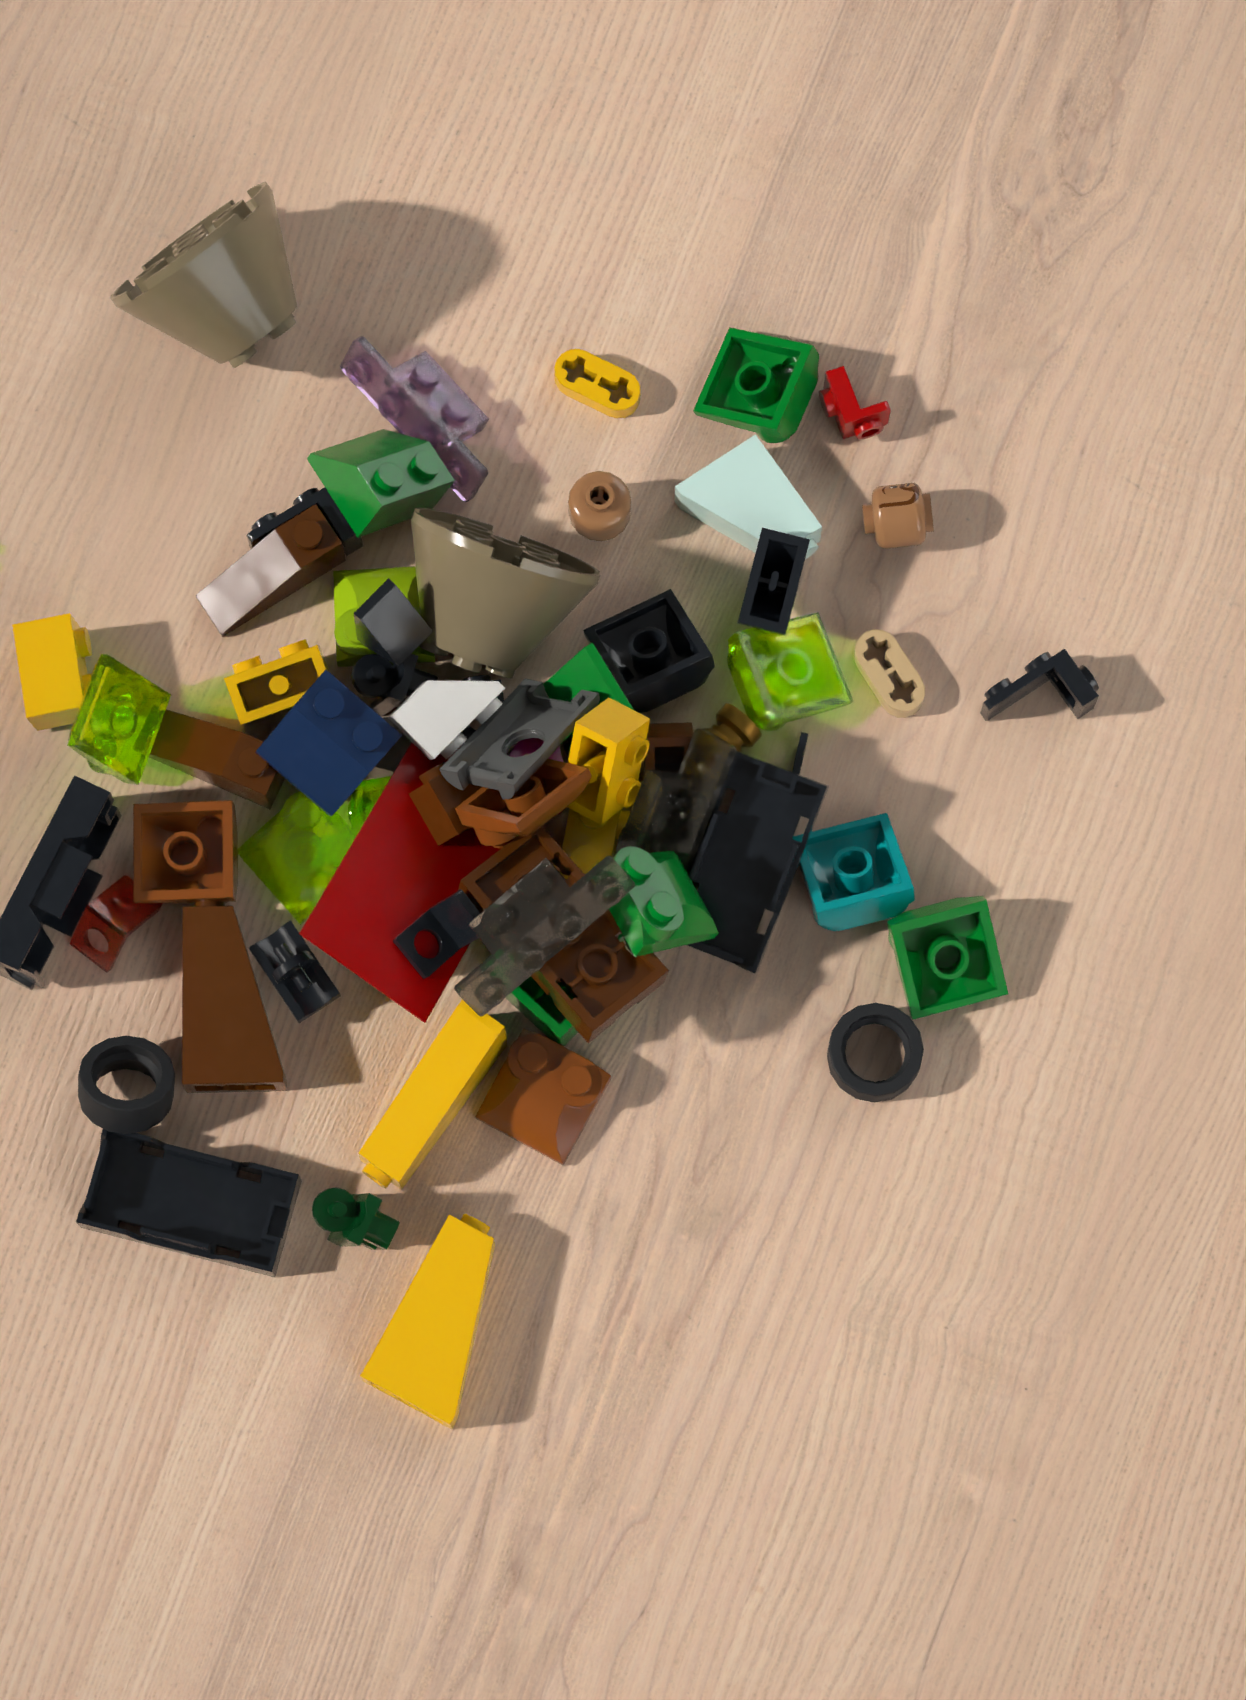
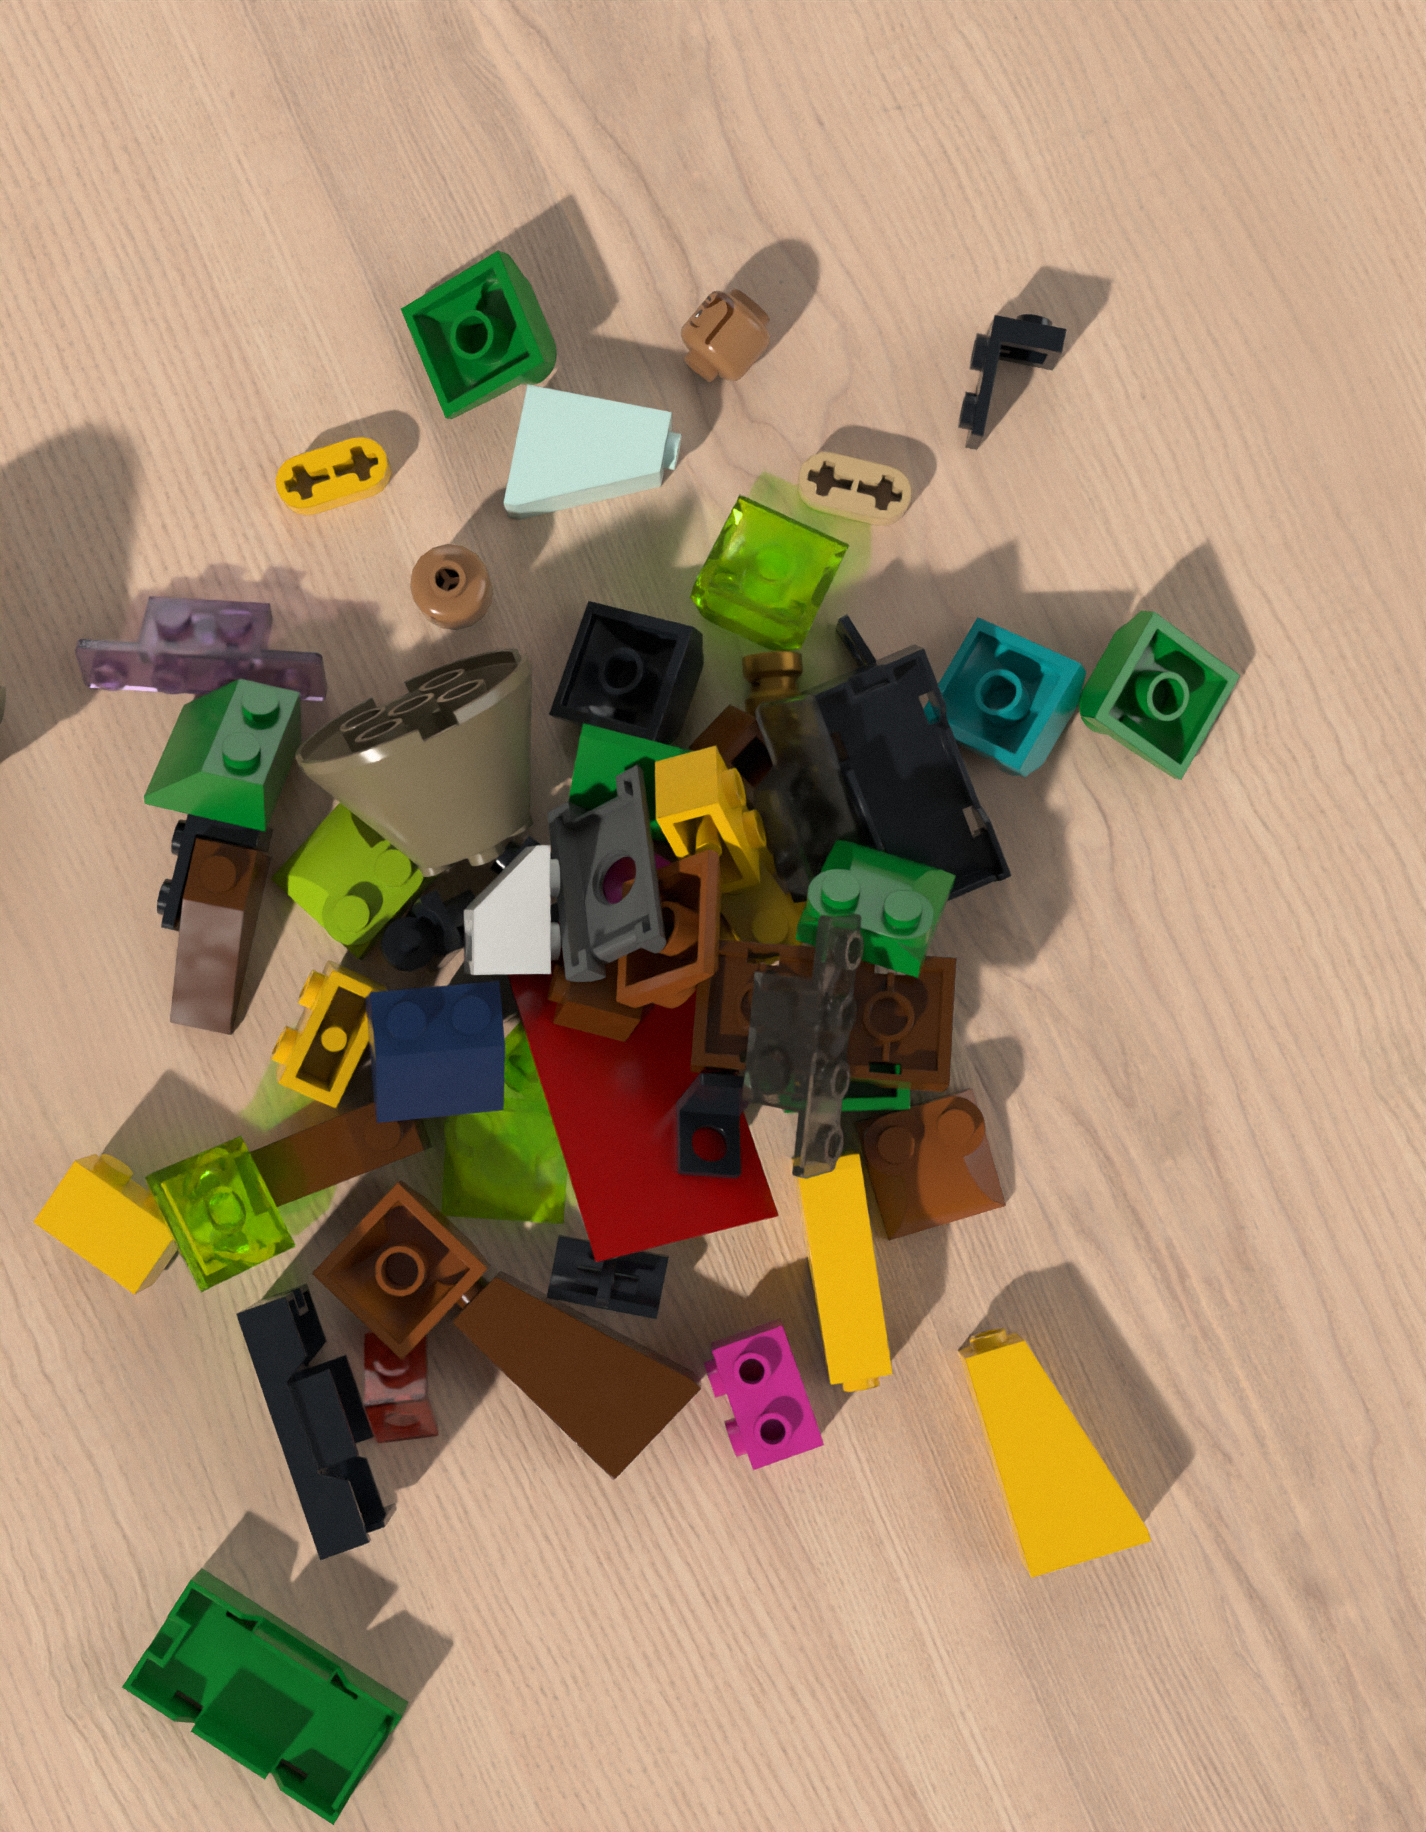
camera: 50 degrees left, 10 degrees up
(130, 1054) = (522, 1506): black tyre -> none
(190, 1202) = (718, 1568): black piece -> none
(315, 1127) = (764, 1394): none -> dark pink brick
(353, 1219) = (888, 1446): dark green hips -> none
(390, 624) = (385, 887): black slope -> none
(773, 581) = (680, 505): black slope -> none
(840, 401) = (572, 281): red bracket -> none
(883, 1015) = (1224, 830): black tyre -> none

